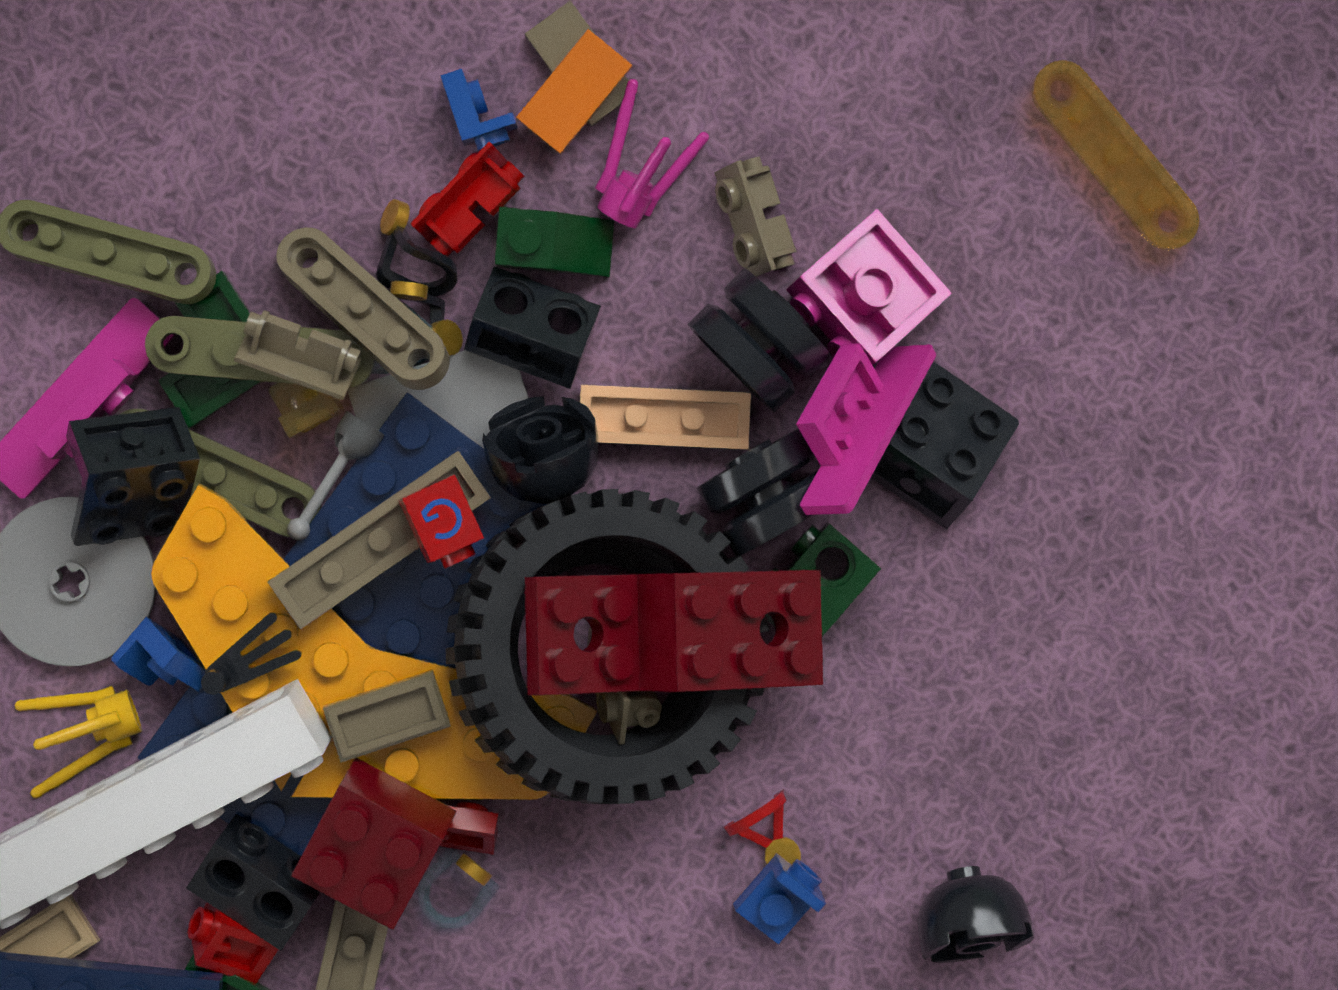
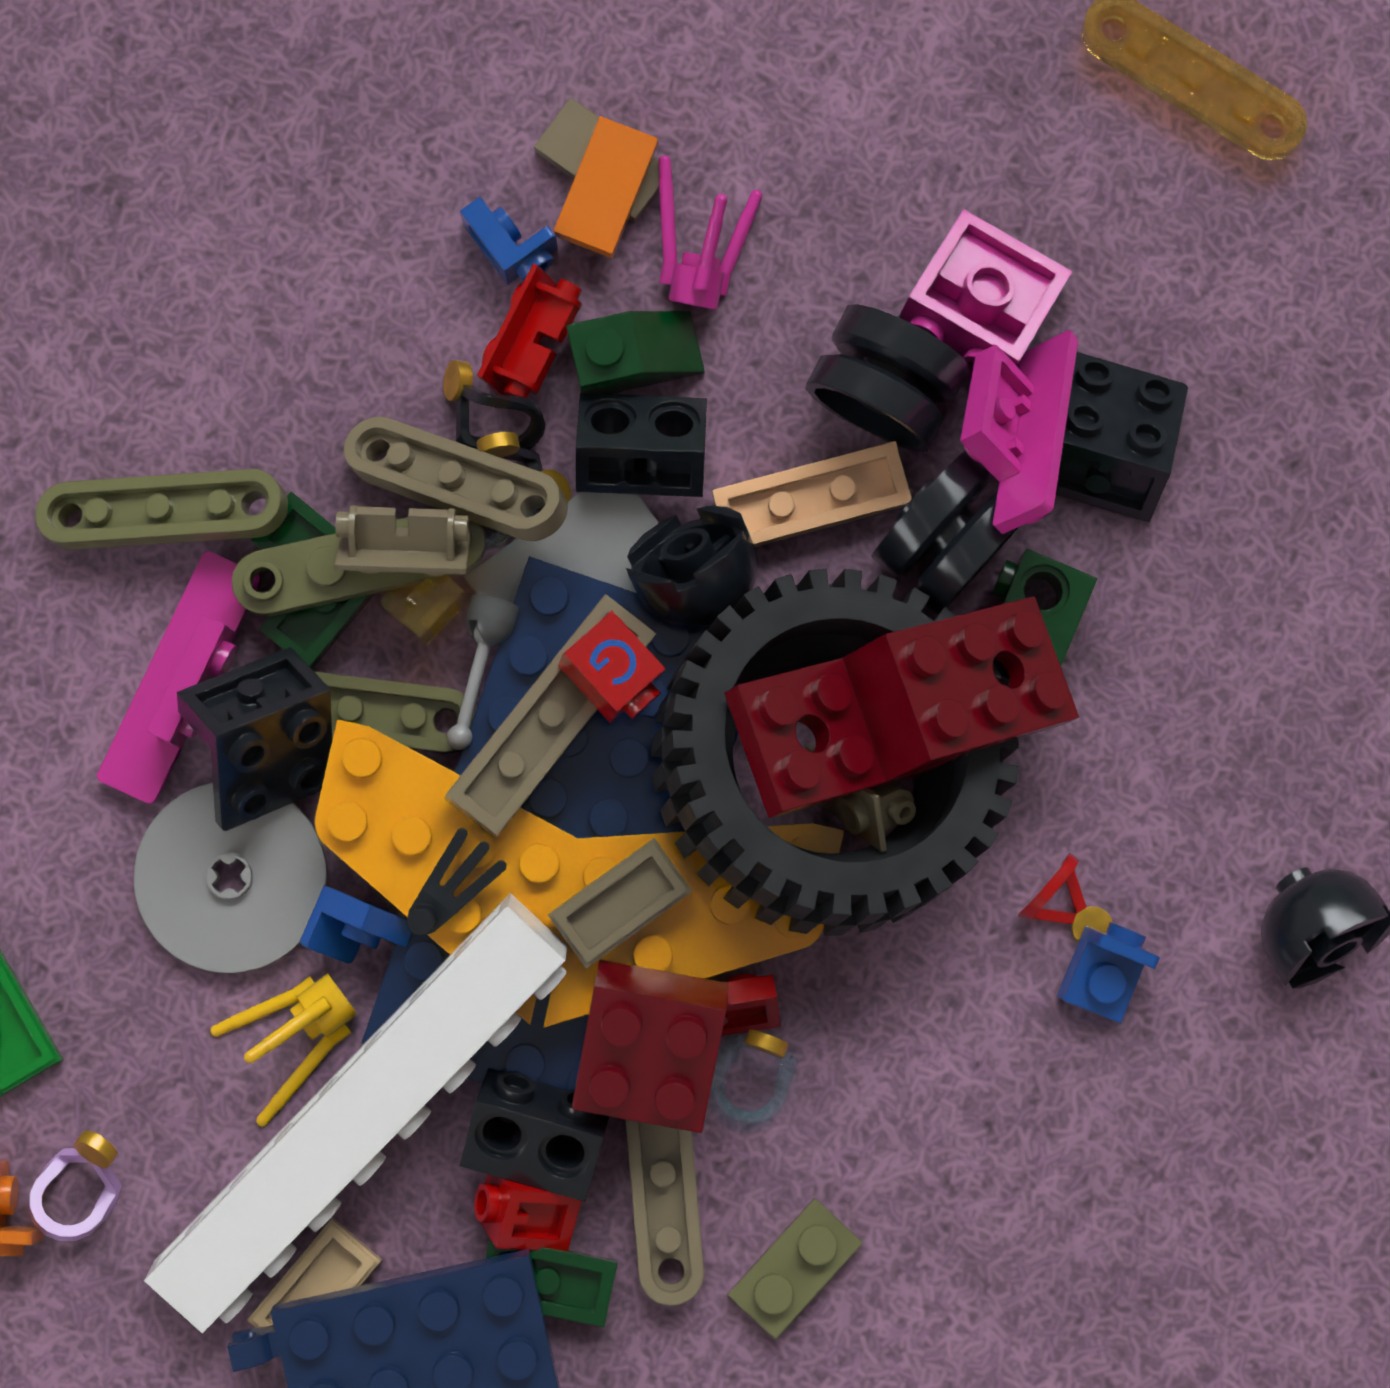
camera: 25 degrees left, 5 degrees down
(743, 193) = (818, 238): dark tan hinge -> none

